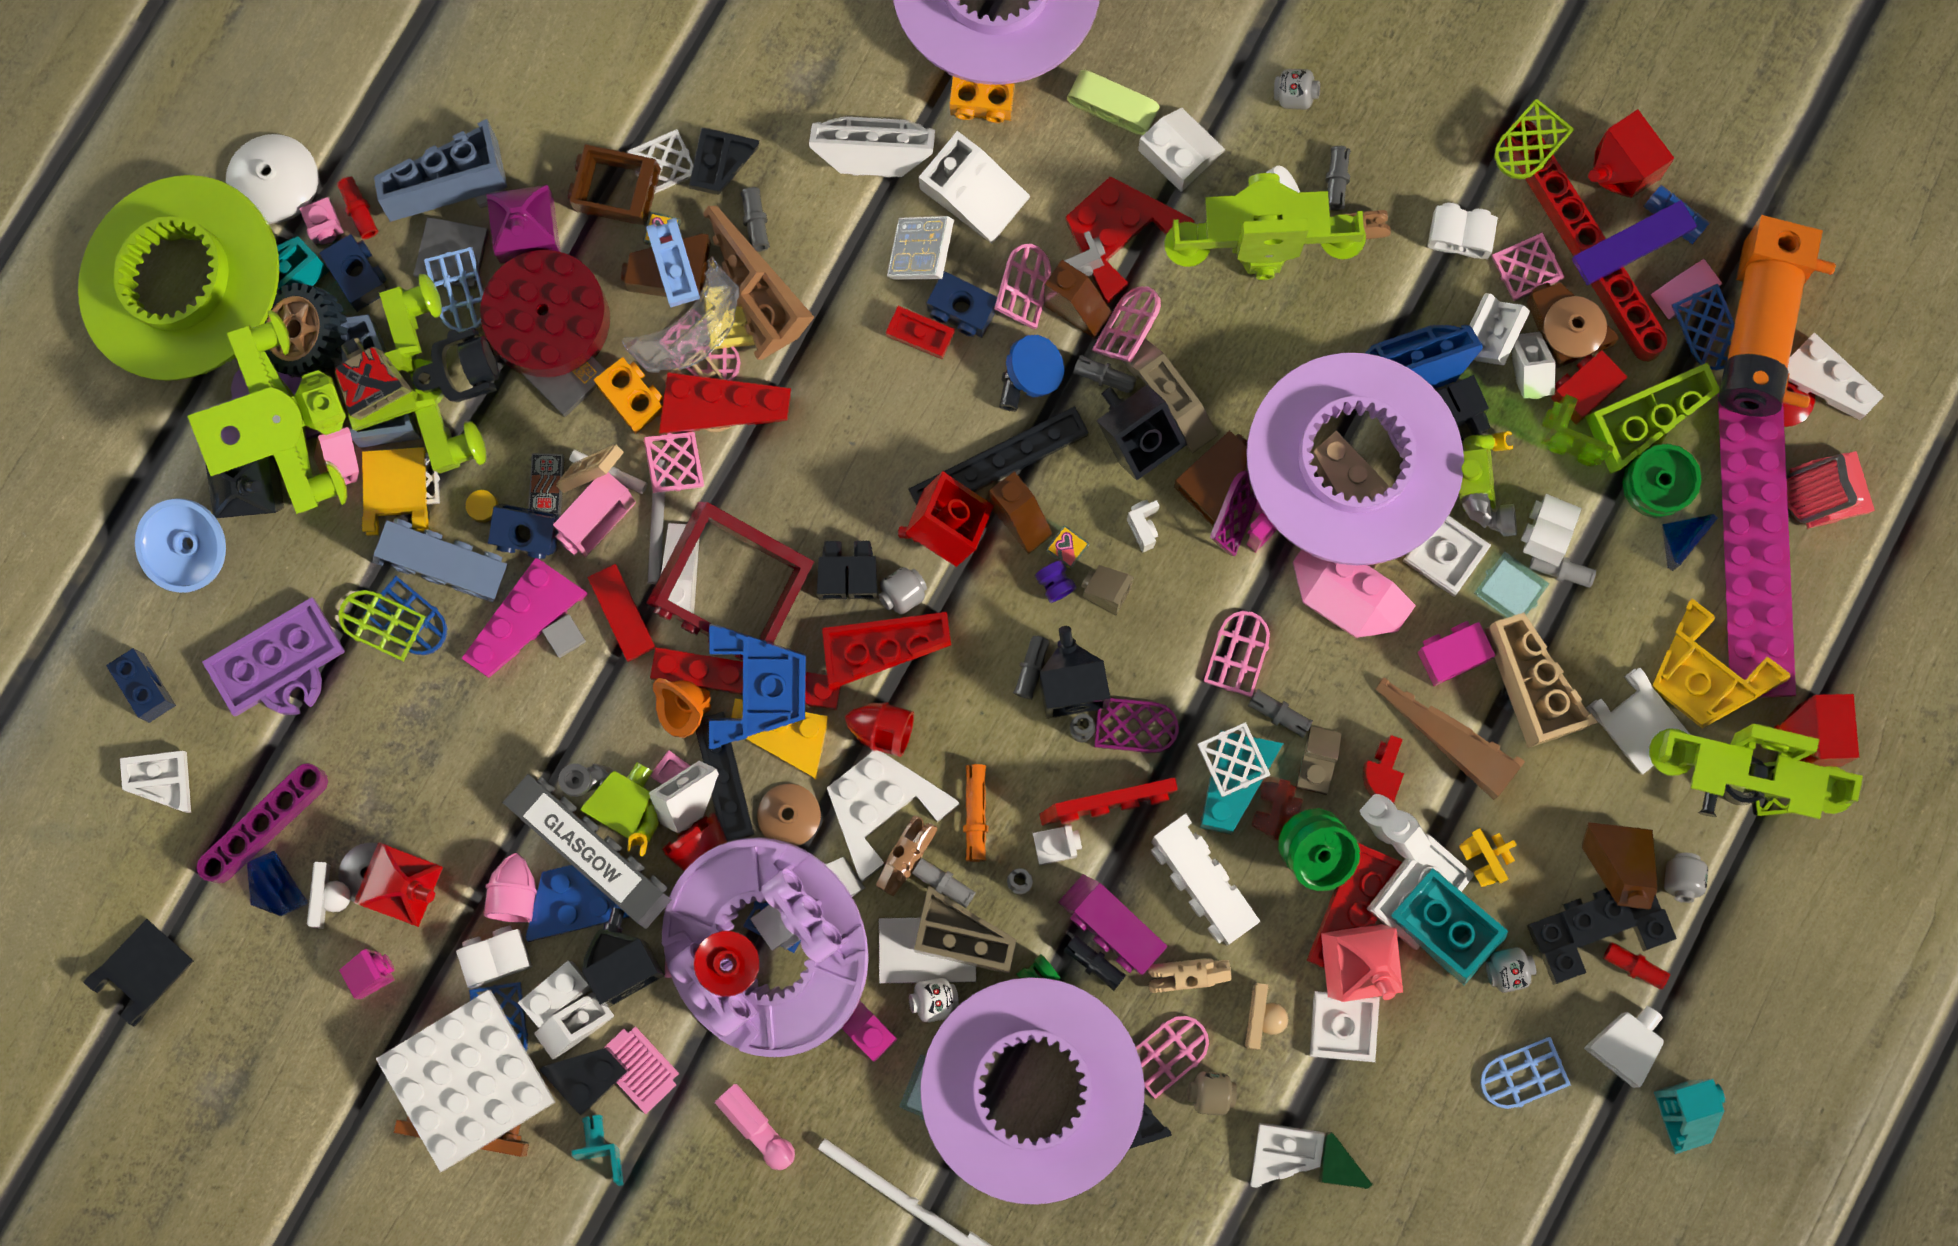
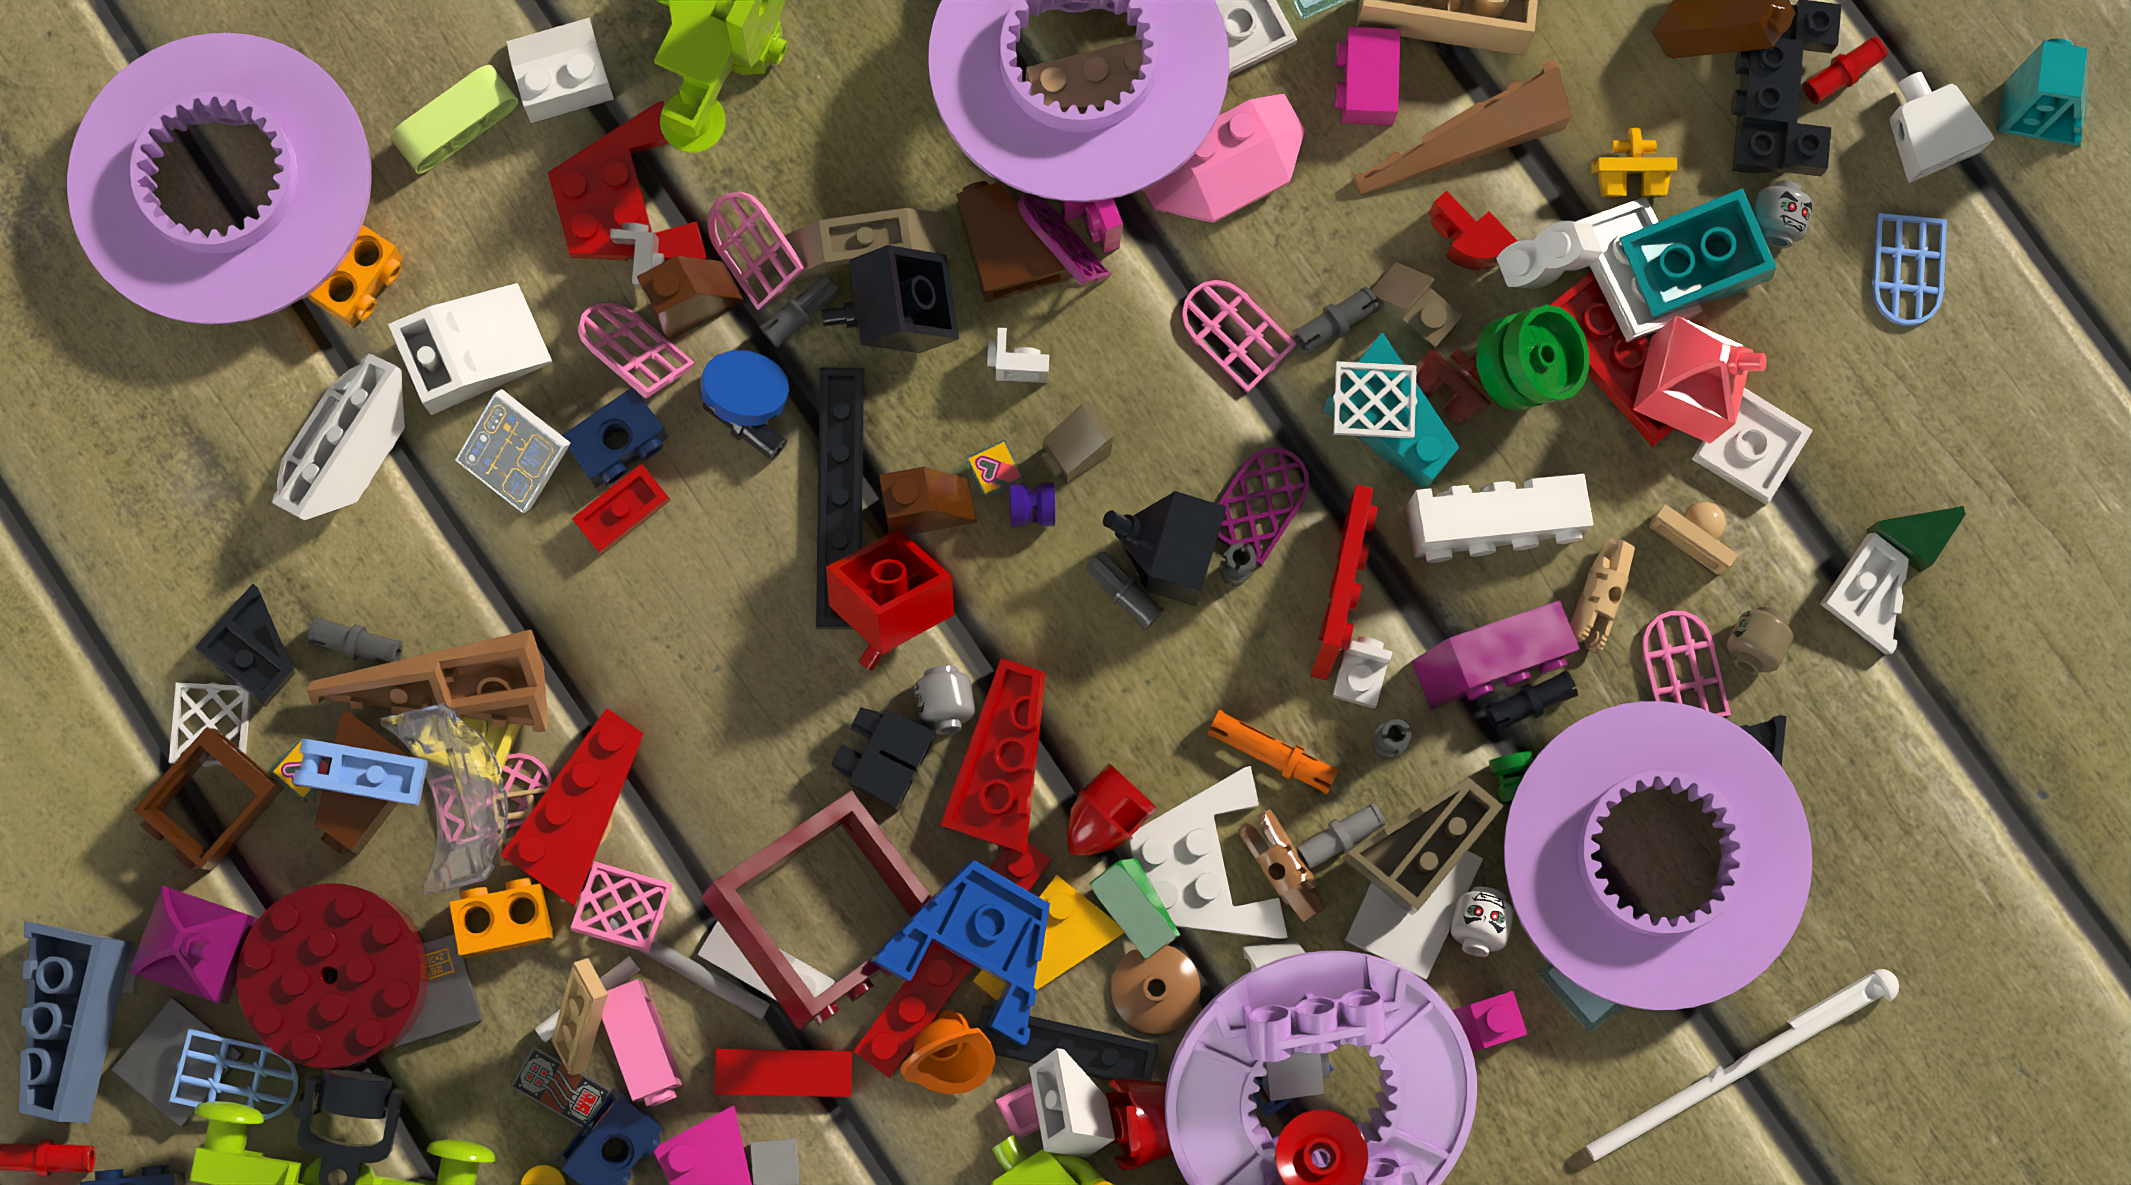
camera: 75 degrees left, 0 degrees up
(832, 774) = (1135, 906): none -> slope

